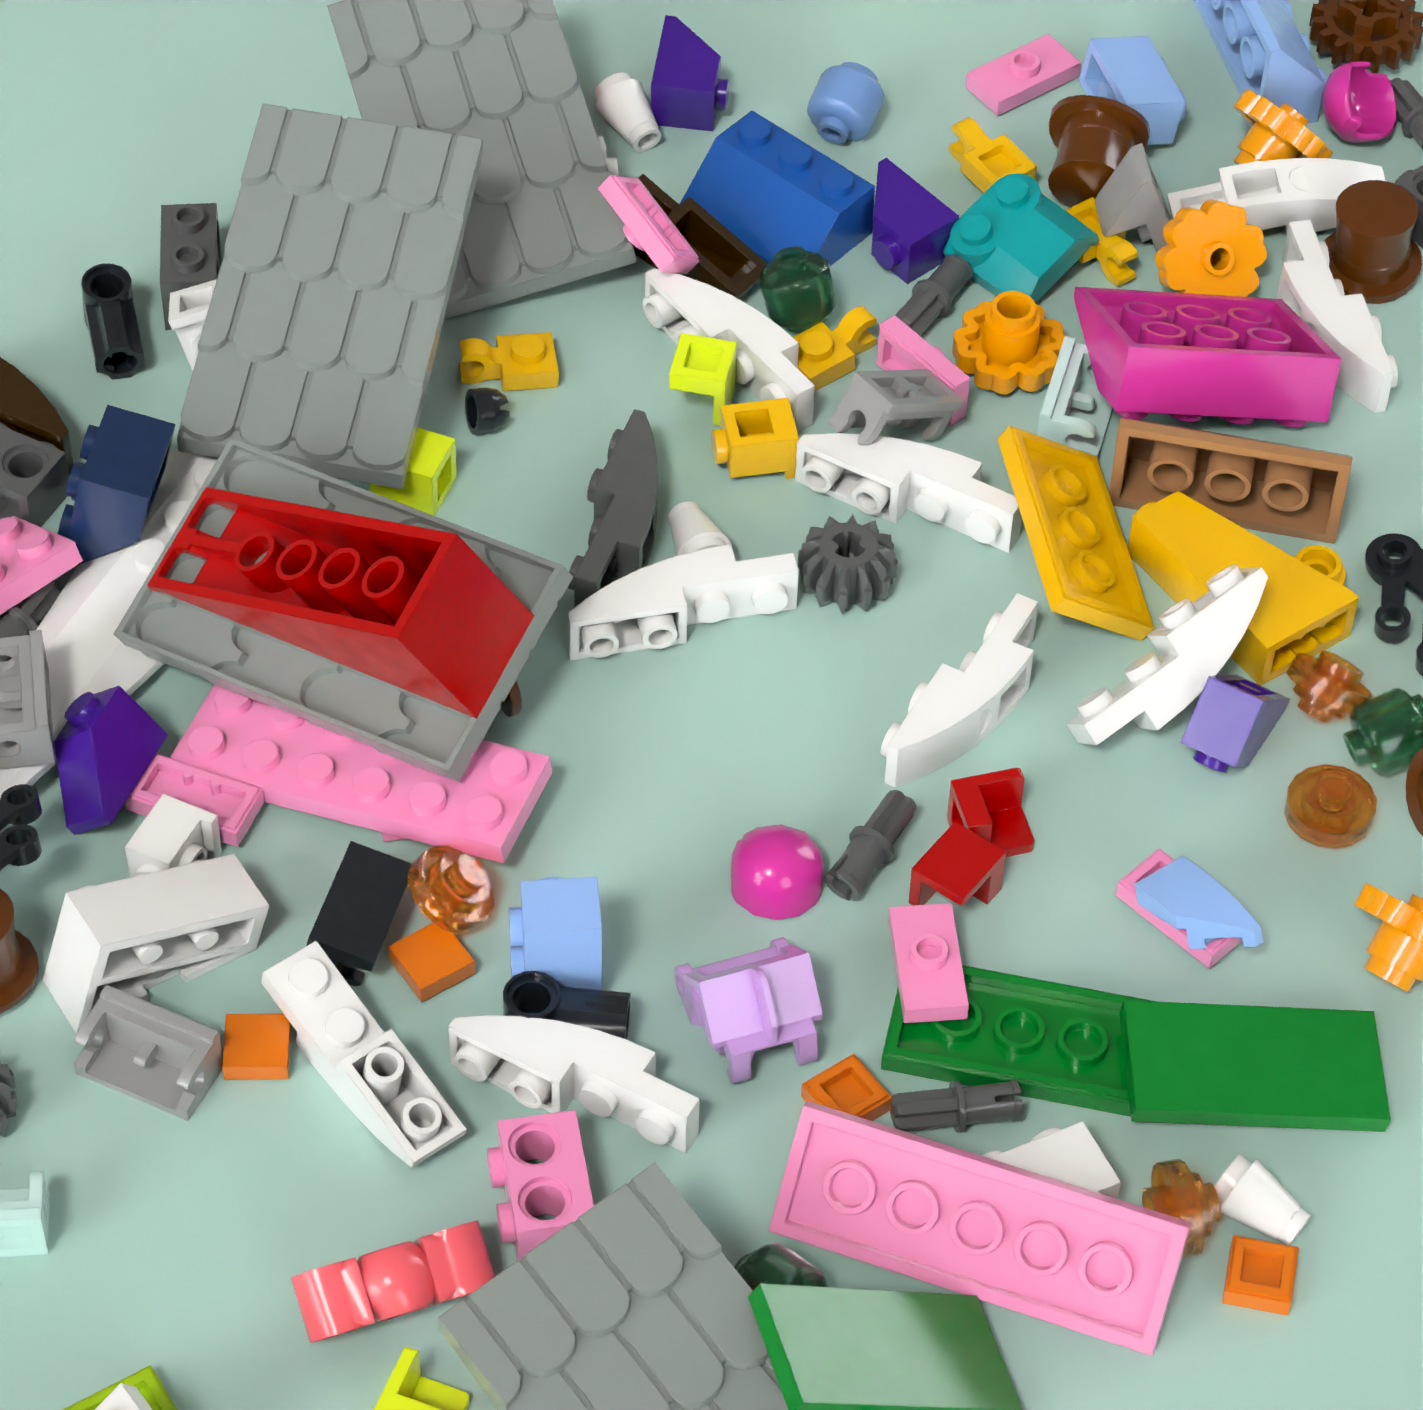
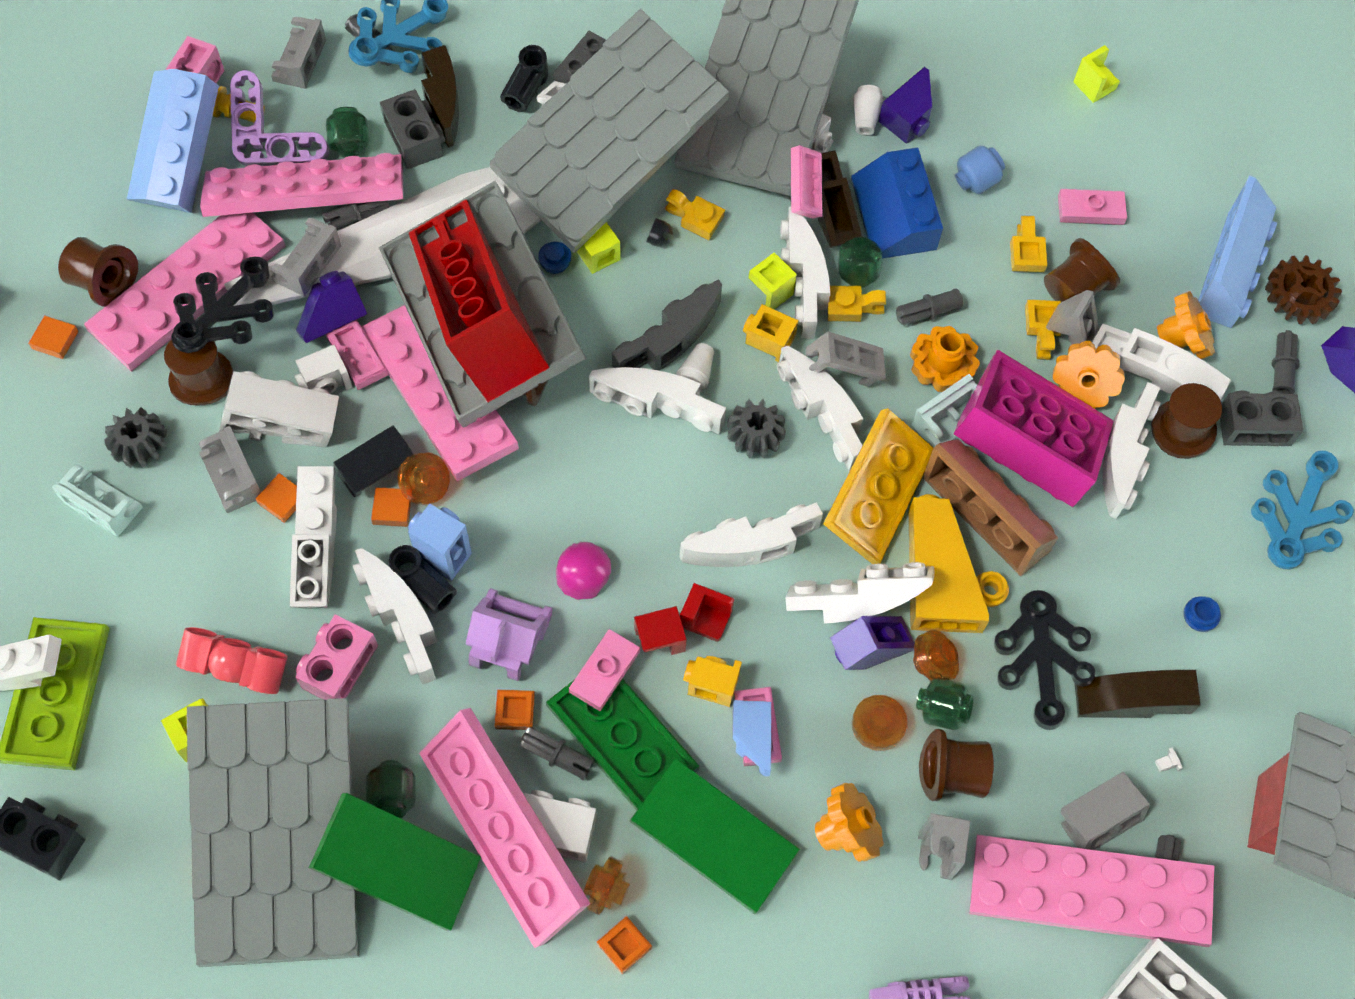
camera: 35 degrees right, 15 degrees up
(116, 482) = (443, 167): dark blue slope -> none
(870, 846) = (637, 587): dark grey axle -> none
(906, 350) = (891, 343): bright pink plate -> none
(908, 224) = (950, 258): dark purple slope -> none
(1018, 238) = (998, 303): teal slope -> none
(1078, 888) = (712, 679): none -> yellow brick
(1138, 77) = (1136, 251): light blue brick -> none
(1260, 1201) = (653, 908): white cone -> none
(1359, 103) = (1255, 334): dark pink hair -> none

